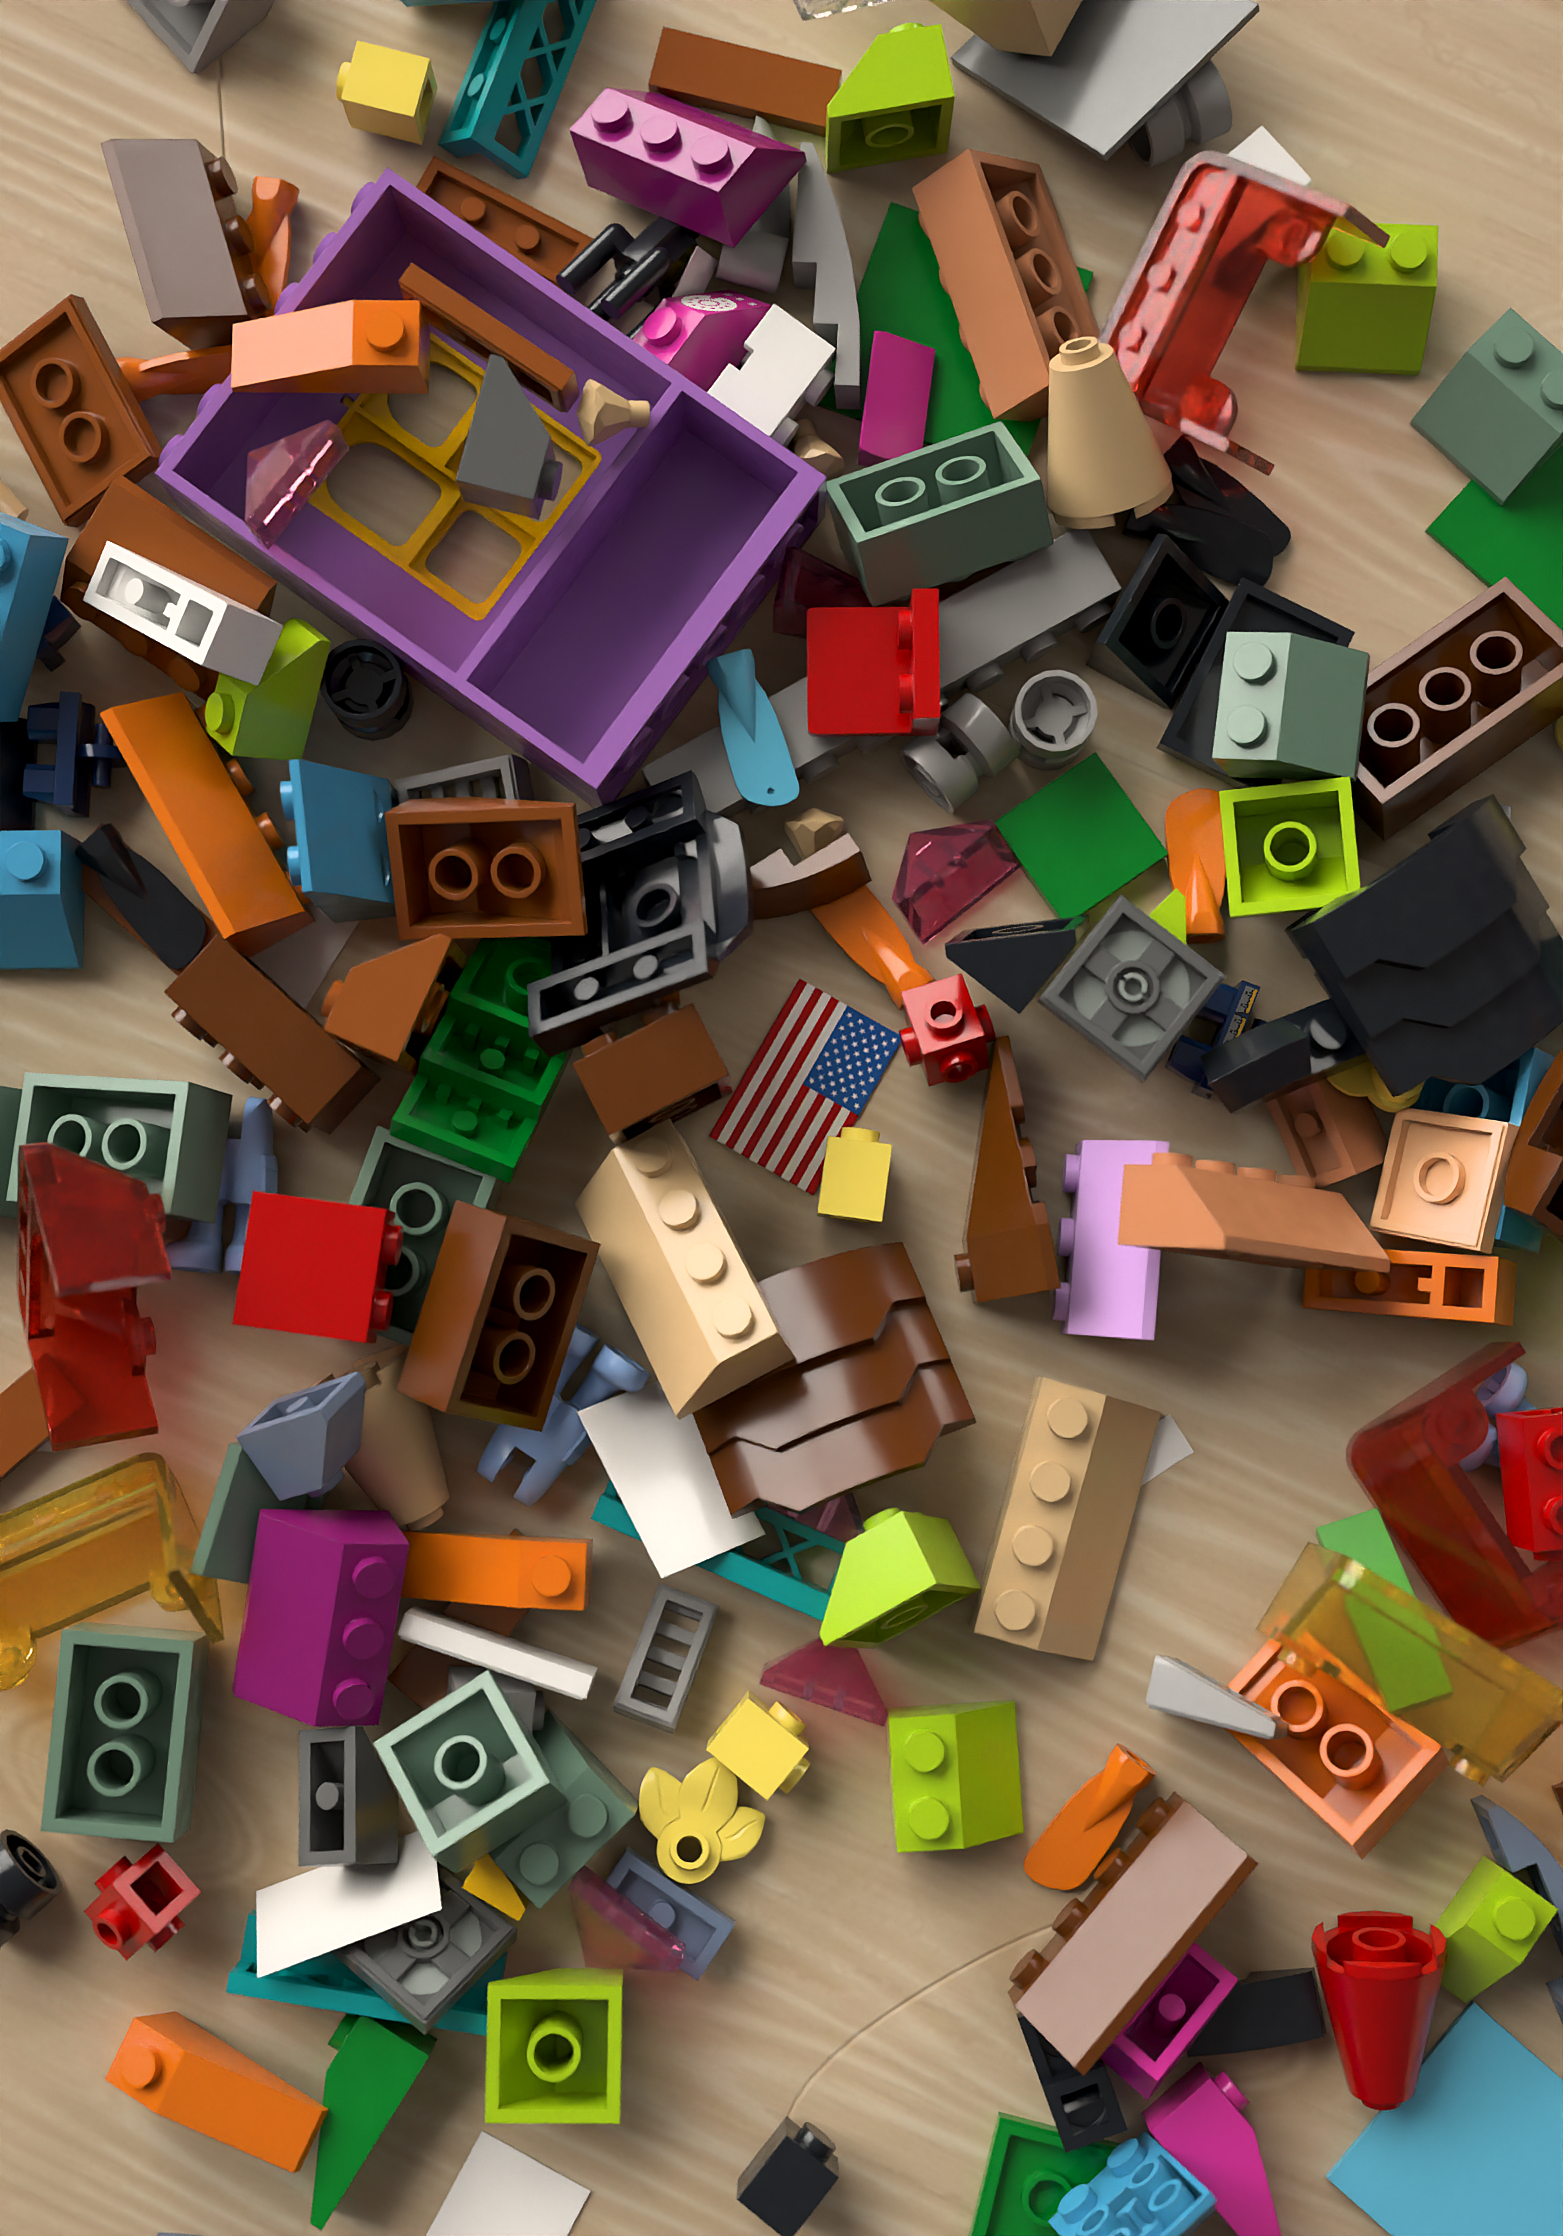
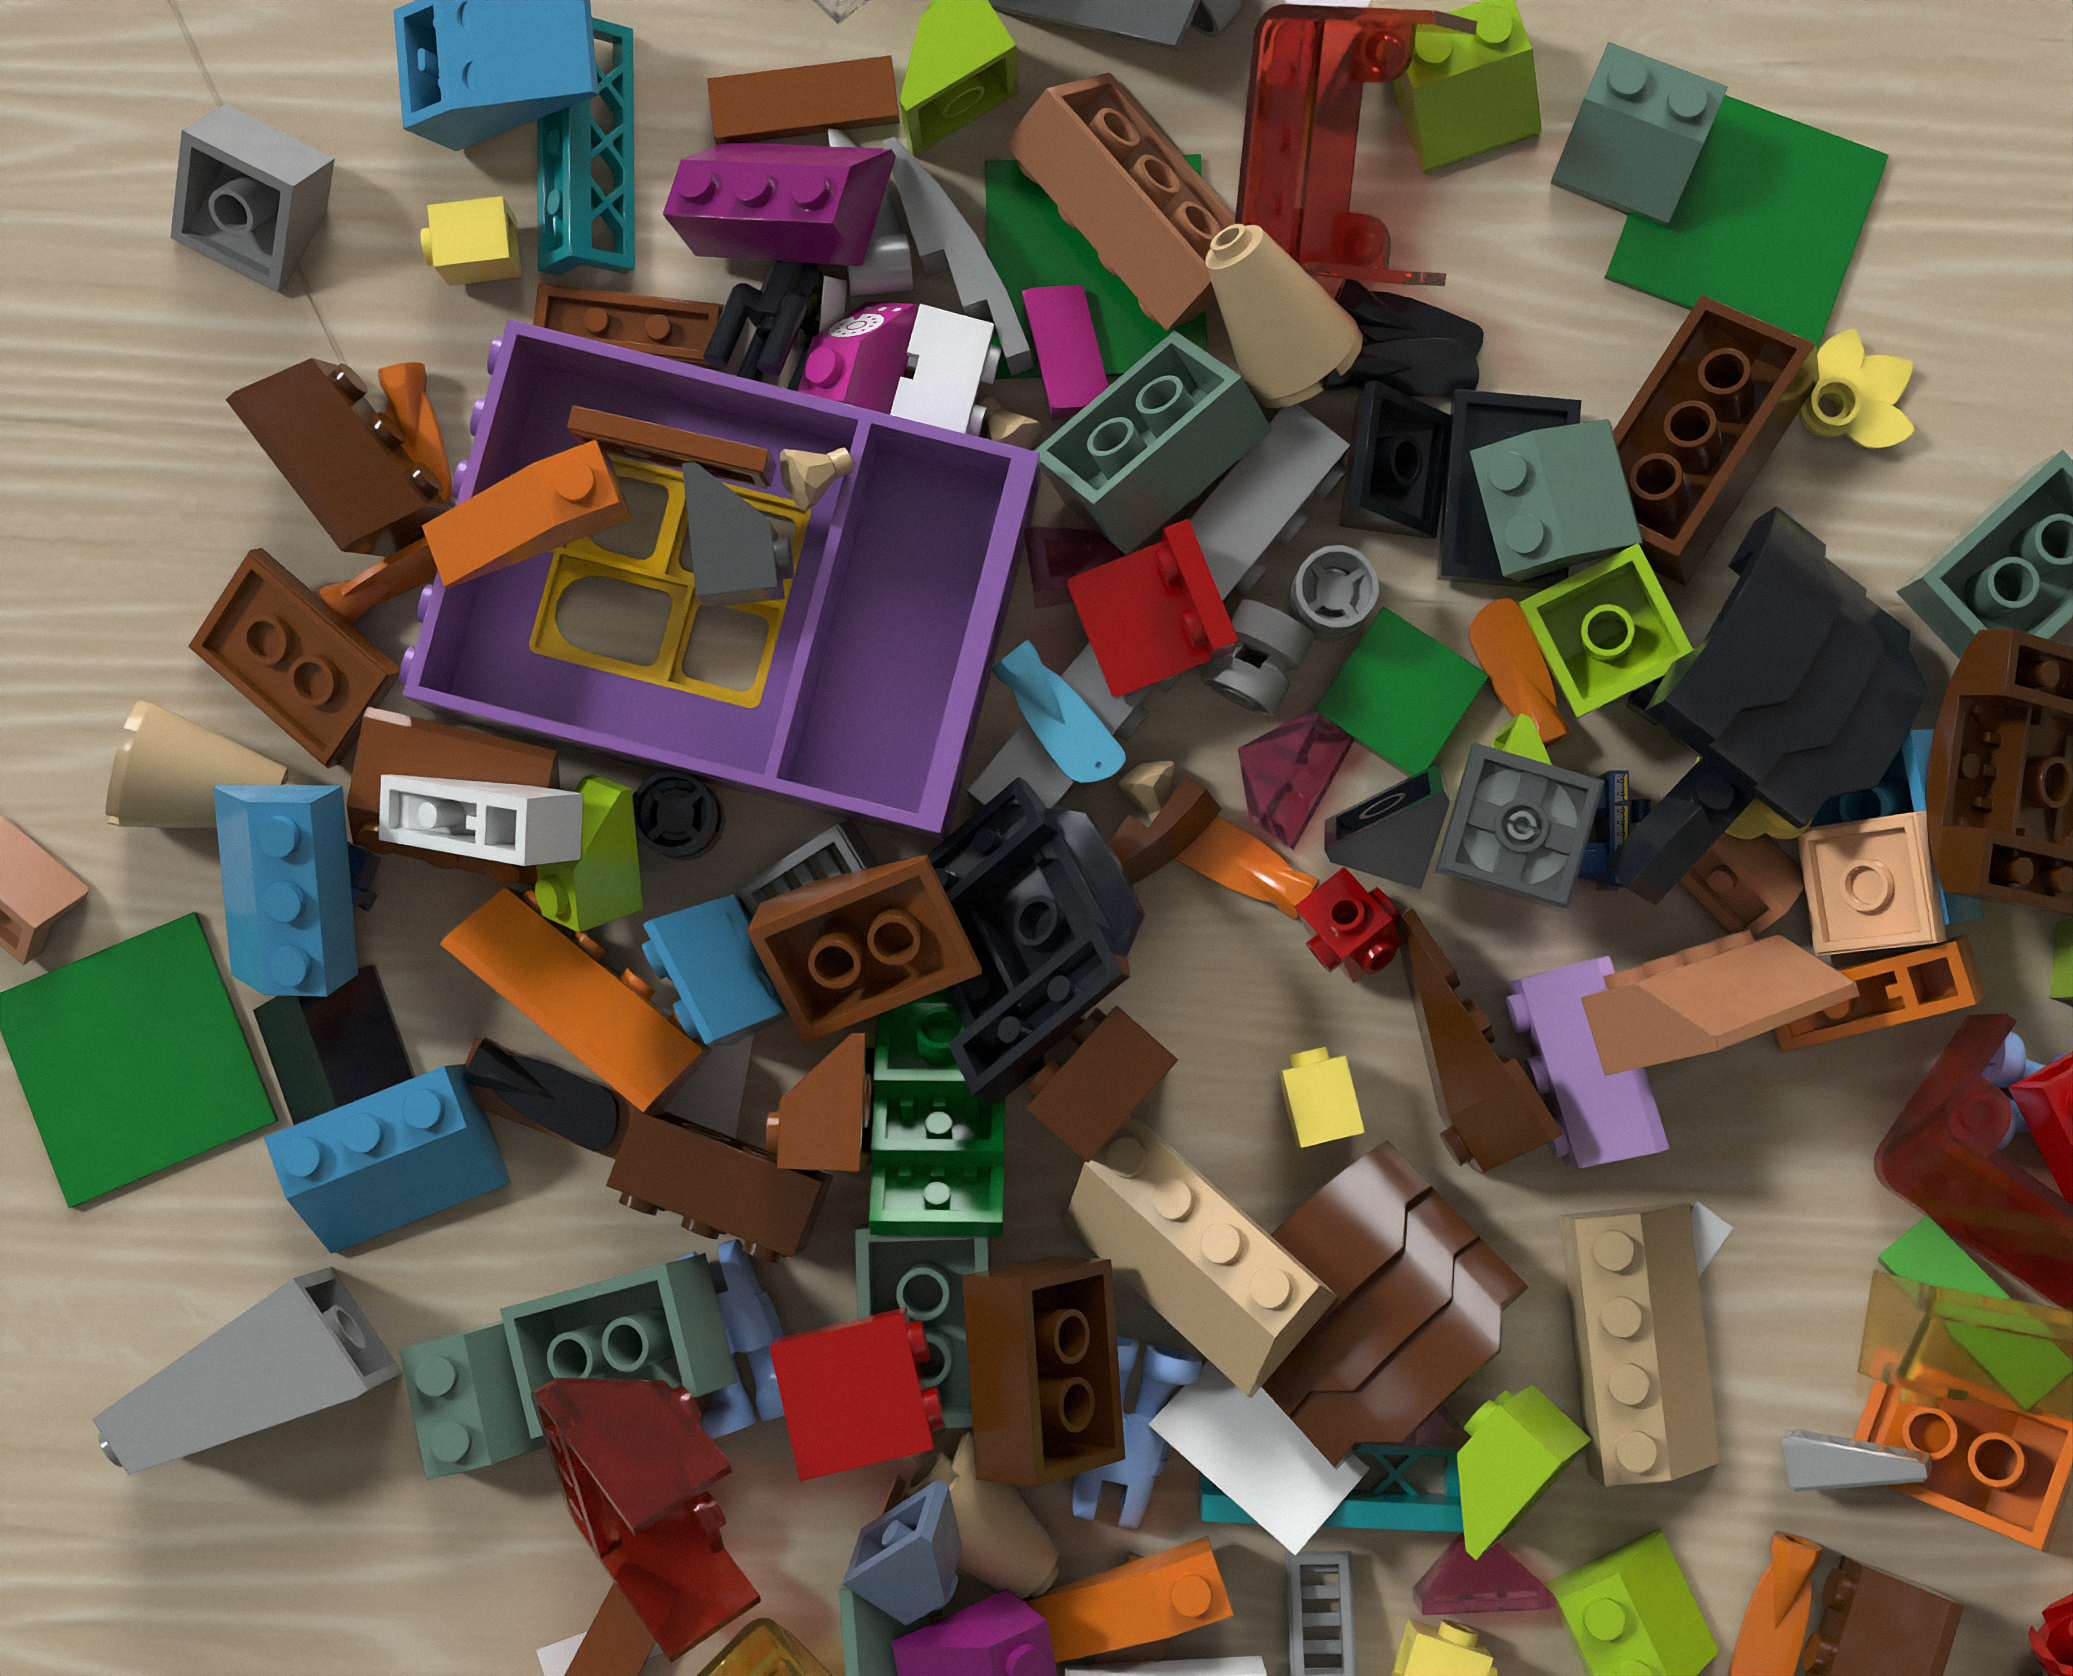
camera: 15 degrees left, 0 degrees up
(71, 727) = (411, 959): dark blue hips -> none
(287, 475) = (529, 652): clear pink slope -> none
(805, 1085) = (1235, 1025): sticker -> none

